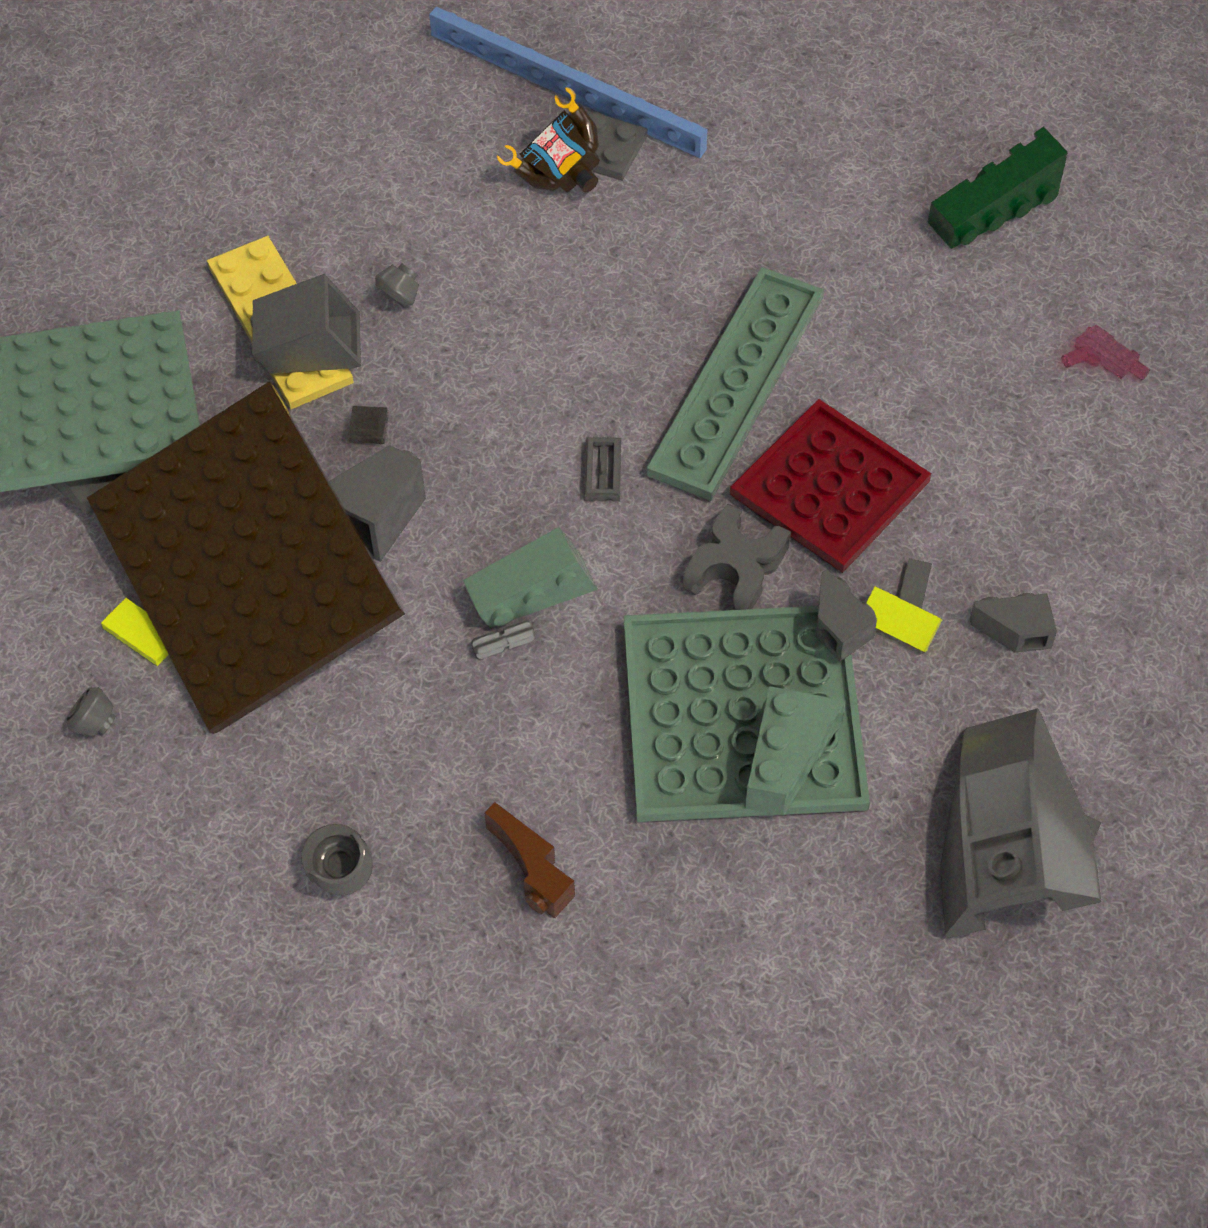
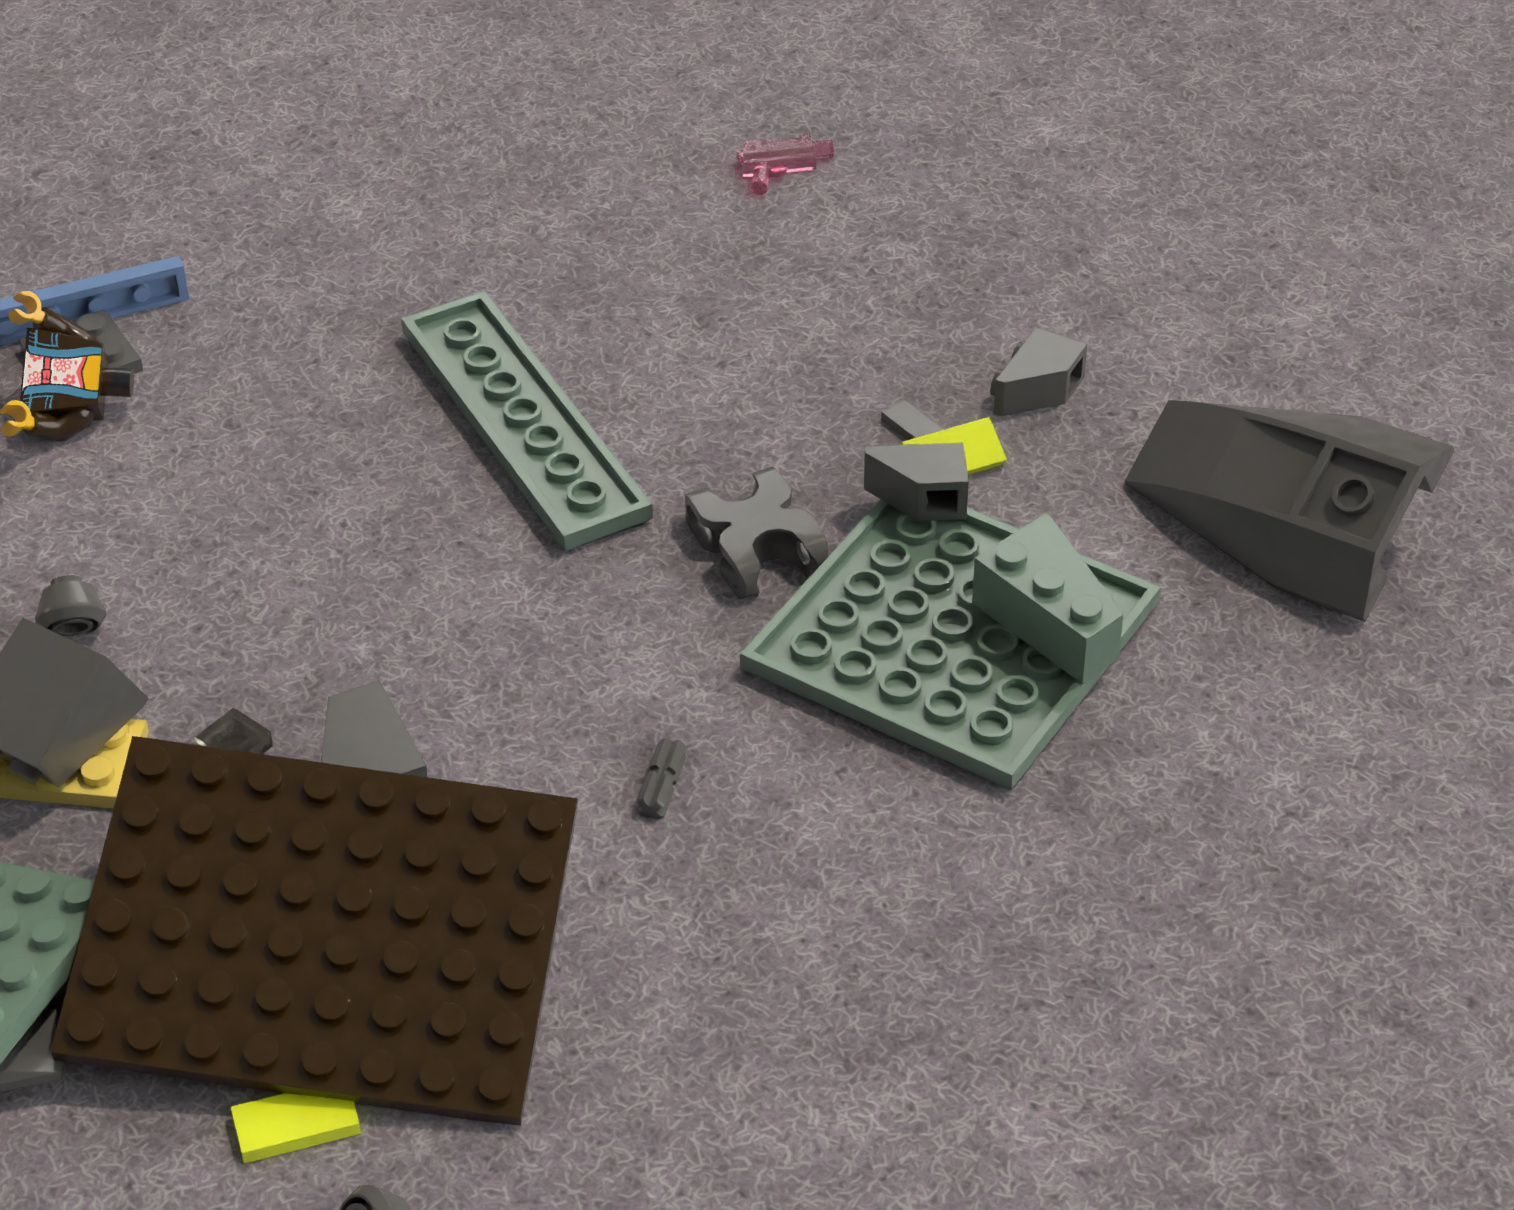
camera: 55 degrees left, 15 degrees down
(337, 859) = (840, 1066): dark grey helmet -> none
(530, 580) = (617, 700): sand green wedge -> none
(544, 884) = (983, 892): reddish brown slope -> none
(602, 493) = (511, 584): dark grey tile -> none
(830, 485) = (730, 414): dark red plate -> none
(1000, 191) = (515, 109): dark green wedge -> none

